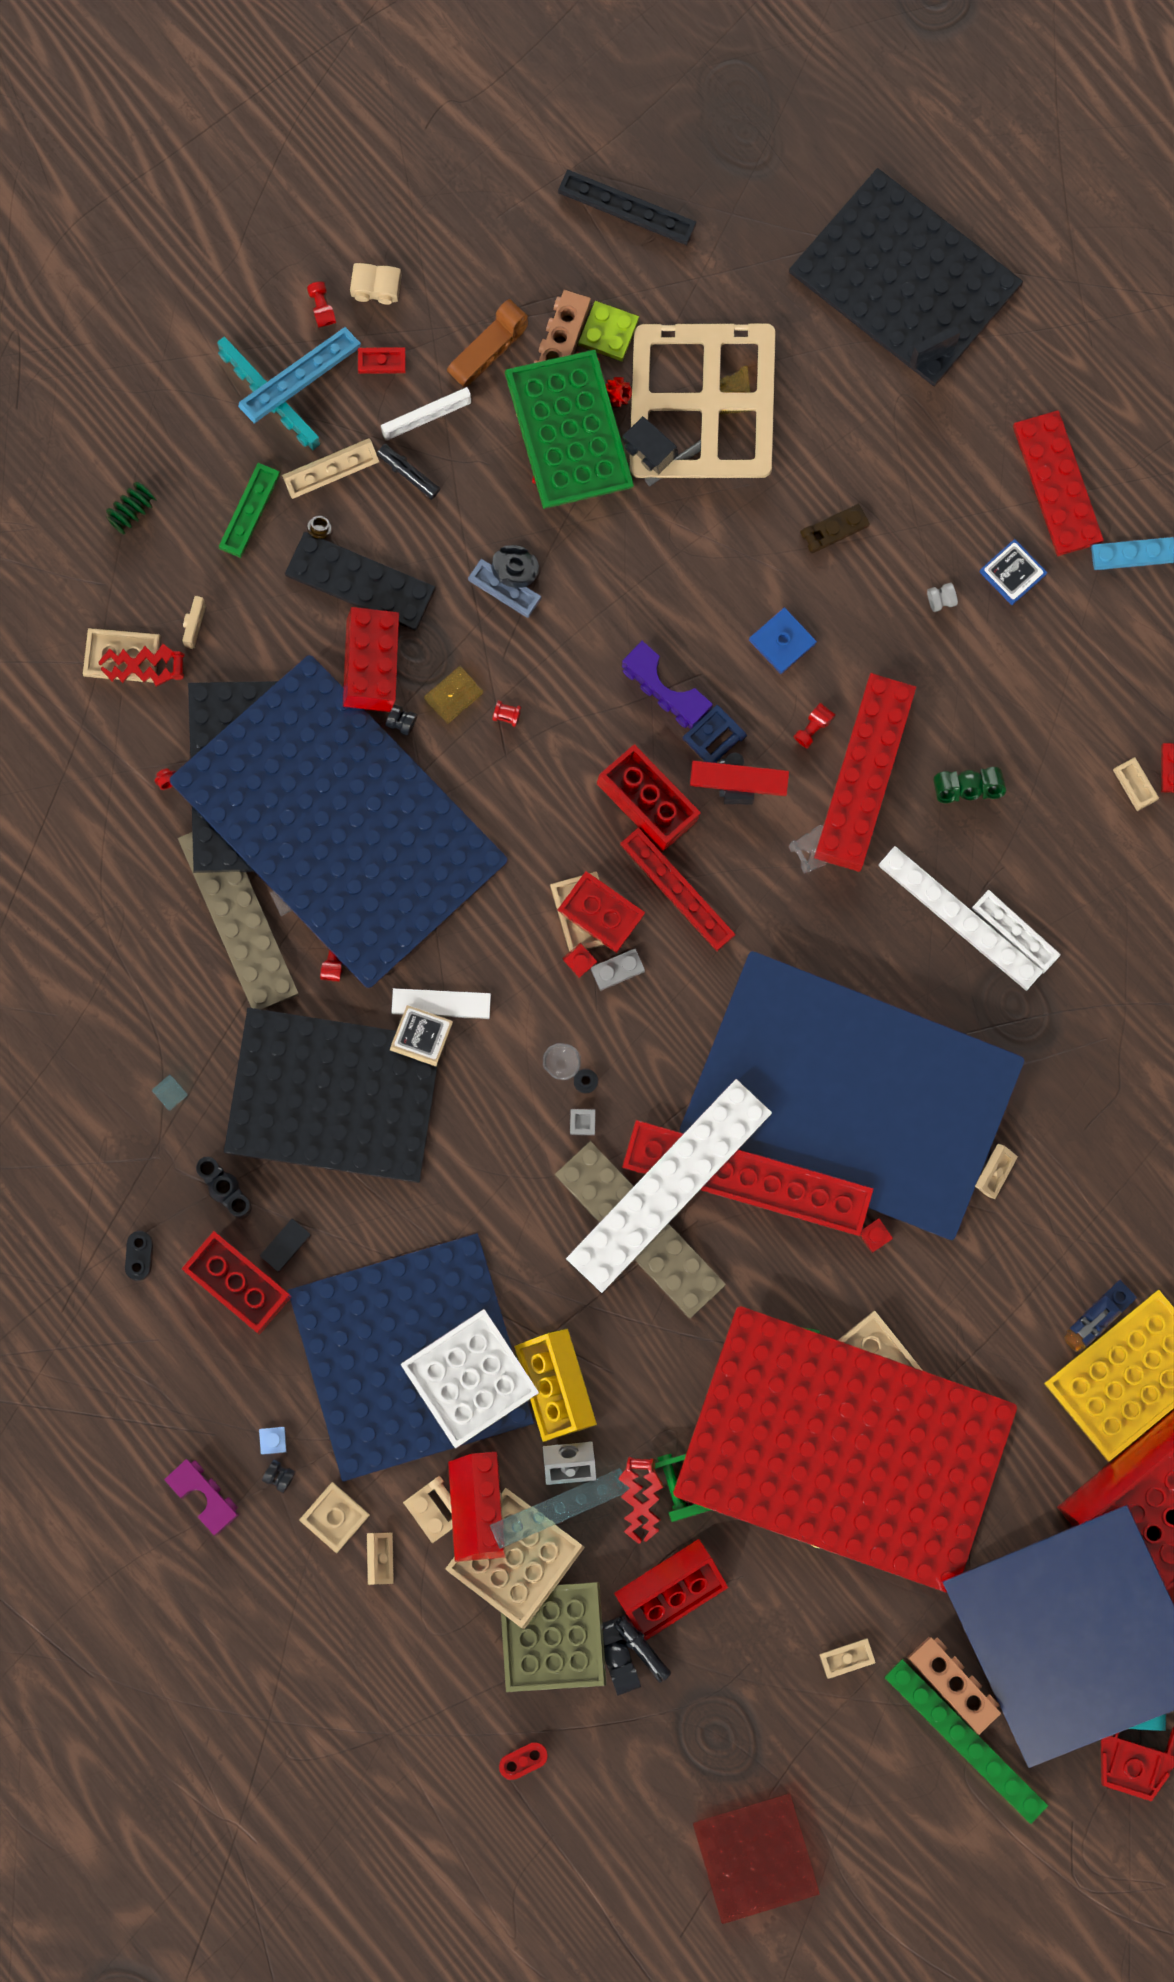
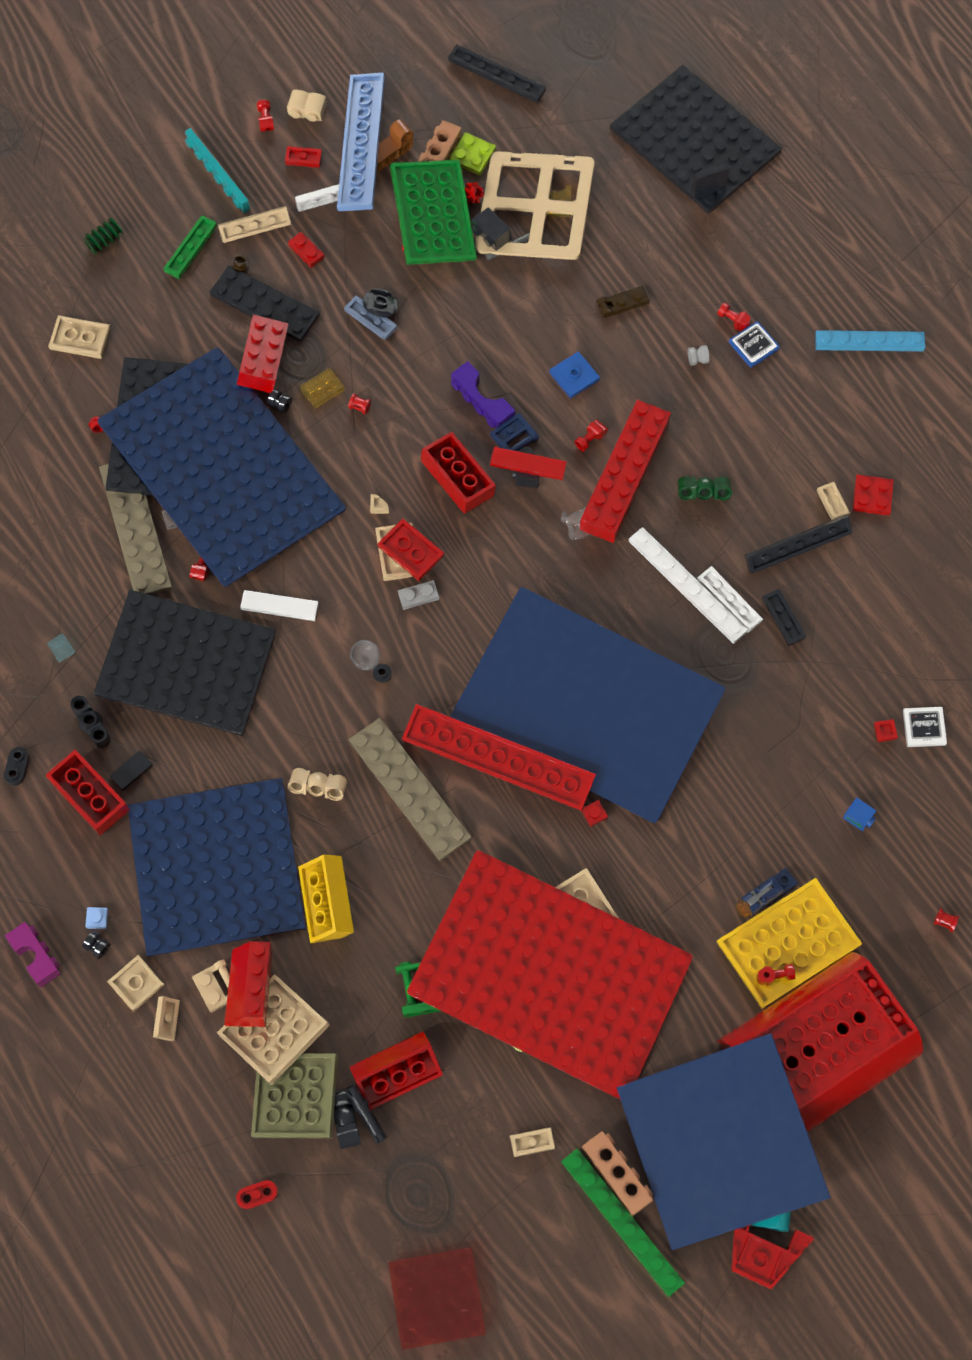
camera: 10 degrees right, 10 degrees down
(134, 663) = (86, 344): red piece -> none
(193, 622) = (136, 318): tan plate -> none
(299, 375) = (240, 157): dark azure plate -> none
(400, 465) = (306, 227): black pin -> none
(404, 496) = (306, 249): none -> red plate
(421, 1035) = (259, 624): tile -> none
(459, 334) = (361, 142): none -> medium blue plate
(469, 1378) = (258, 885): white plate -> none
(524, 1238) = (317, 784): none -> tan piece
(549, 851) = (378, 505): none -> tan tile
(558, 1508) = (313, 992): clear light blue tile -> none
(569, 1463) = (327, 959): light grey brick -> none
(579, 960) = (389, 584): red plate -> none
(582, 1122) = (375, 703): light grey plate -> none
(640, 1508) = (381, 1002): piece -> none
(669, 1185) = (435, 755): white plate -> none
(677, 889) = (472, 541): red plate -> none
(992, 541) = (740, 320): none -> red leg
(996, 1171) = (695, 774): tan plate -> none
(1058, 483) = (794, 287): red plate -> none
(1087, 950) = (783, 617): none -> black plate
(1097, 848) = (798, 544): none -> black plate
(1113, 1422) = (768, 975): none -> red leg

